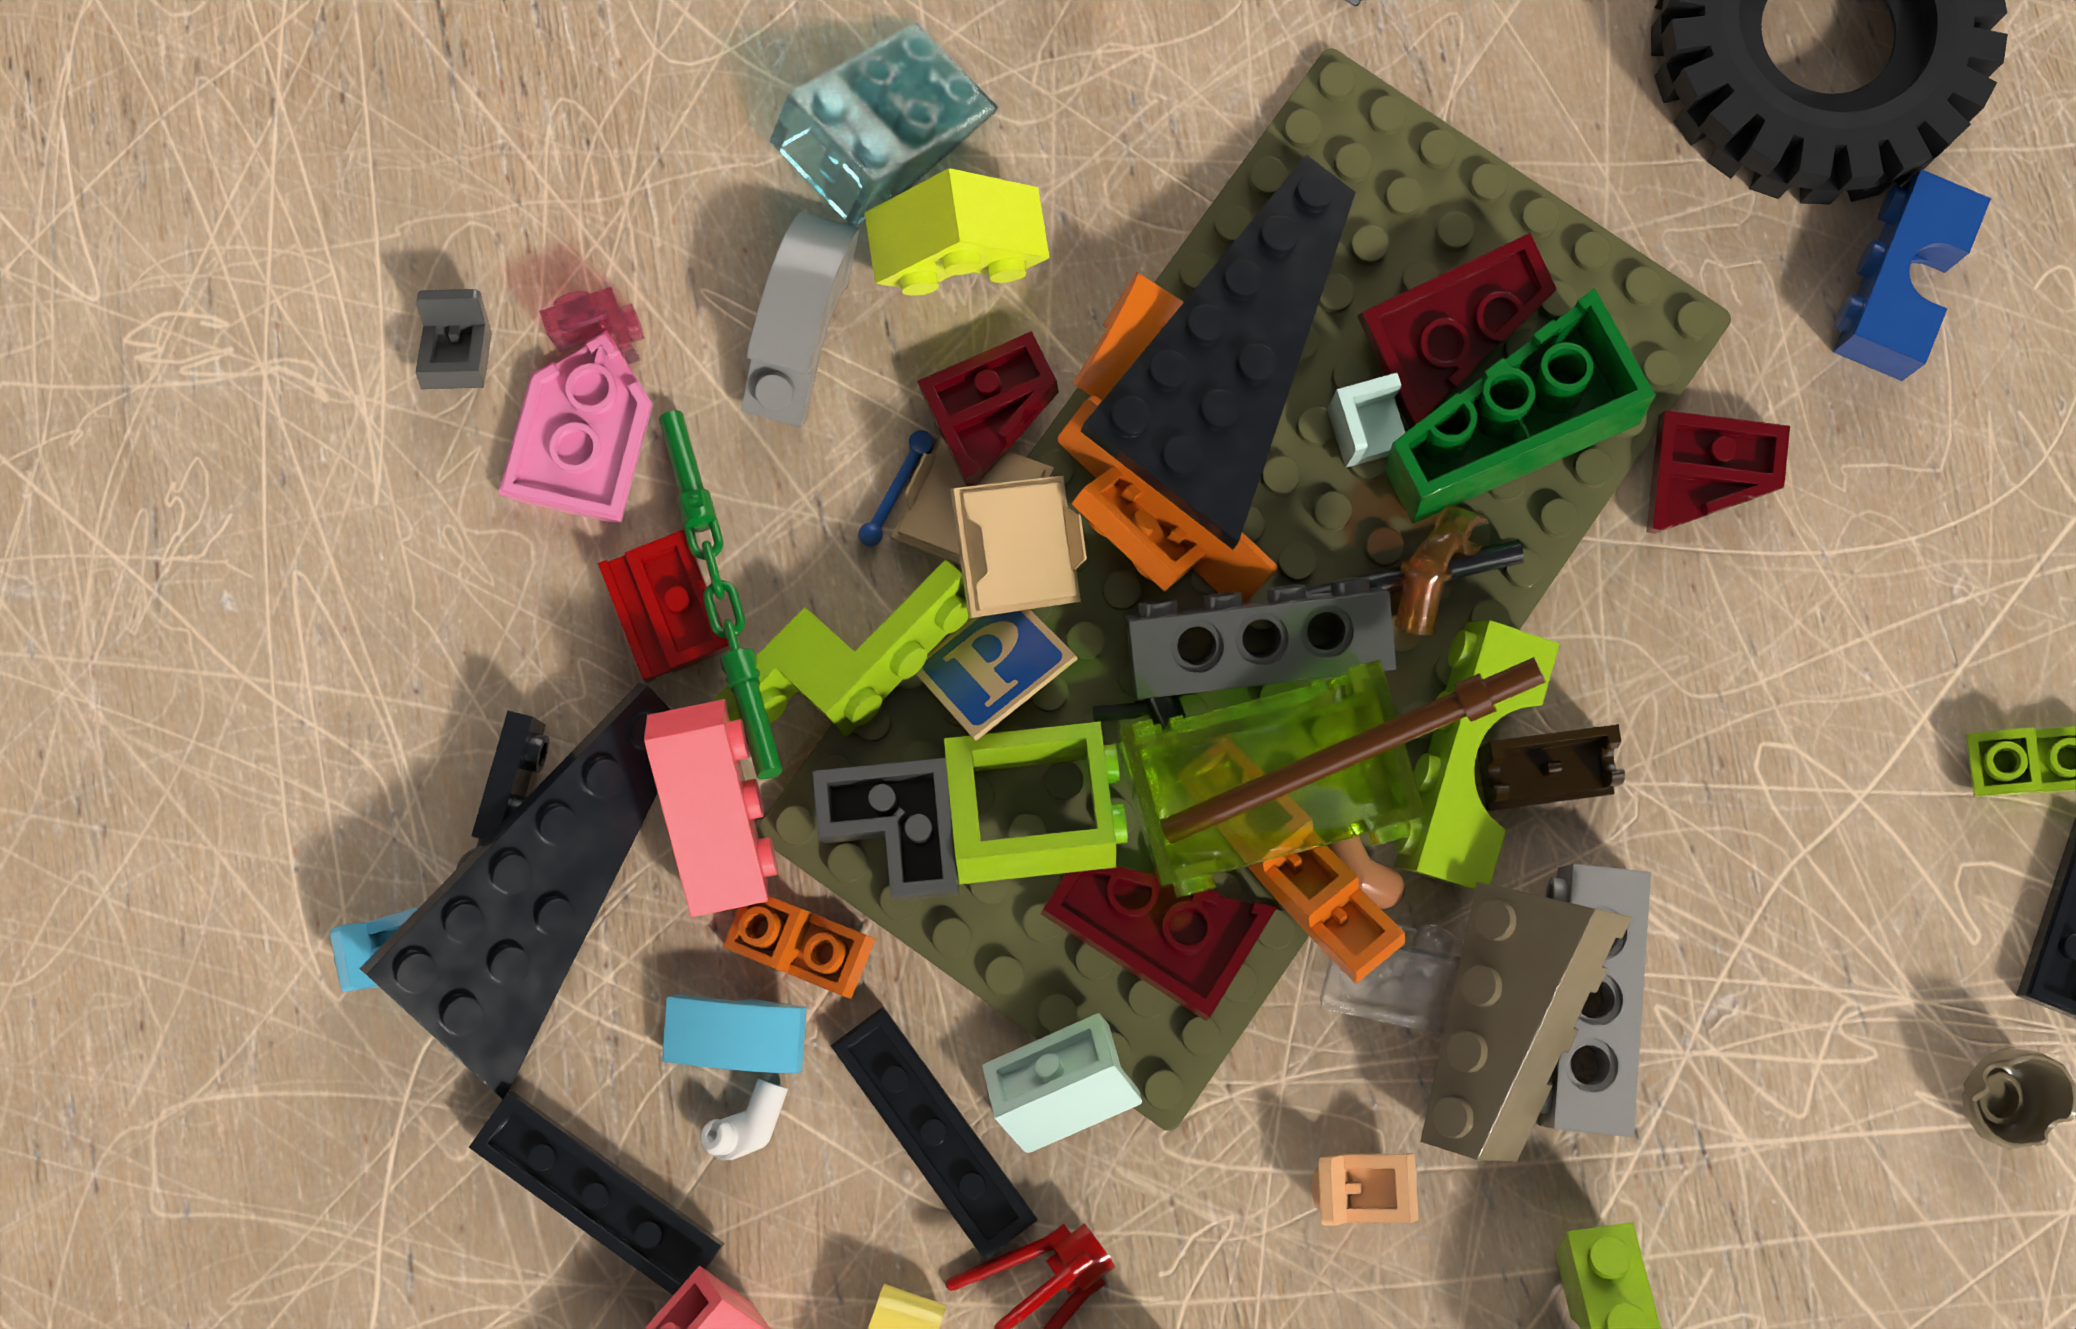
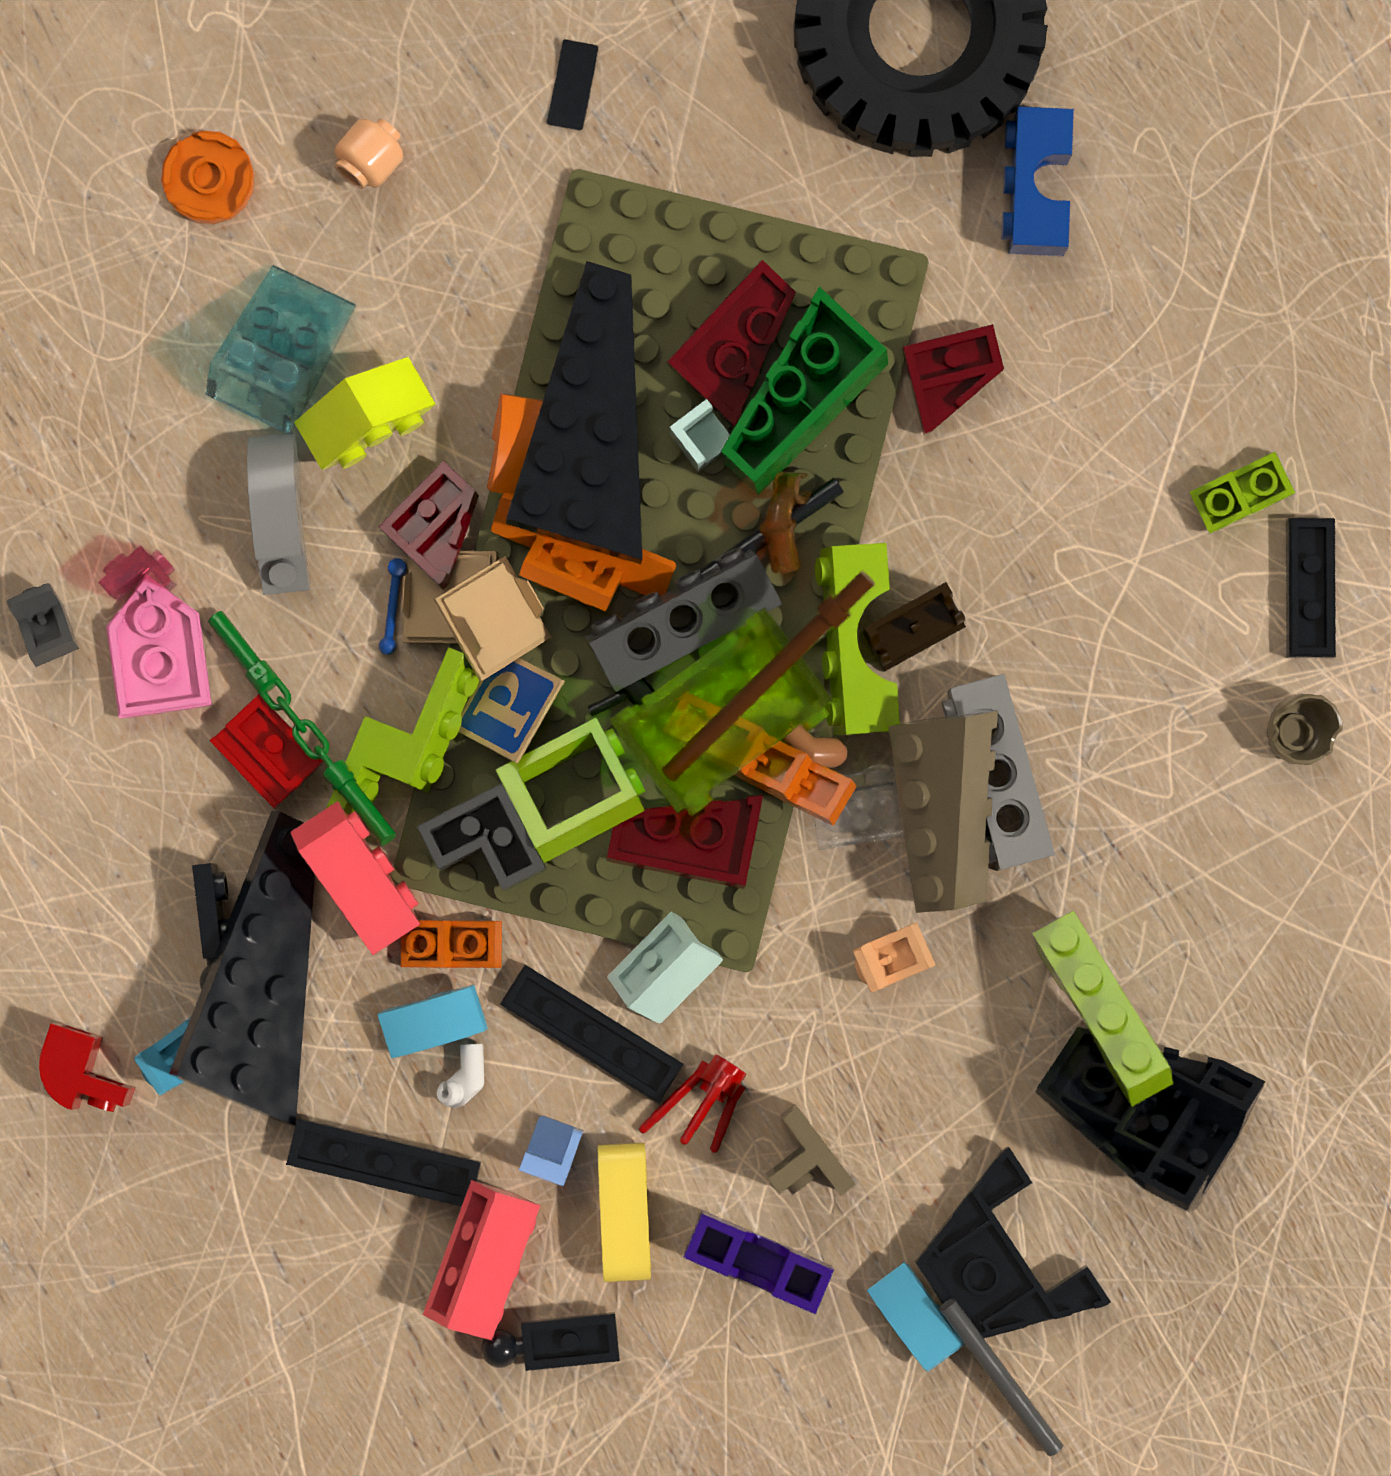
camera: 20 degrees left, 5 degrees up
(242, 916) = (67, 1069): none -> red brick
(820, 1267) = (551, 1150): none -> light blue panel

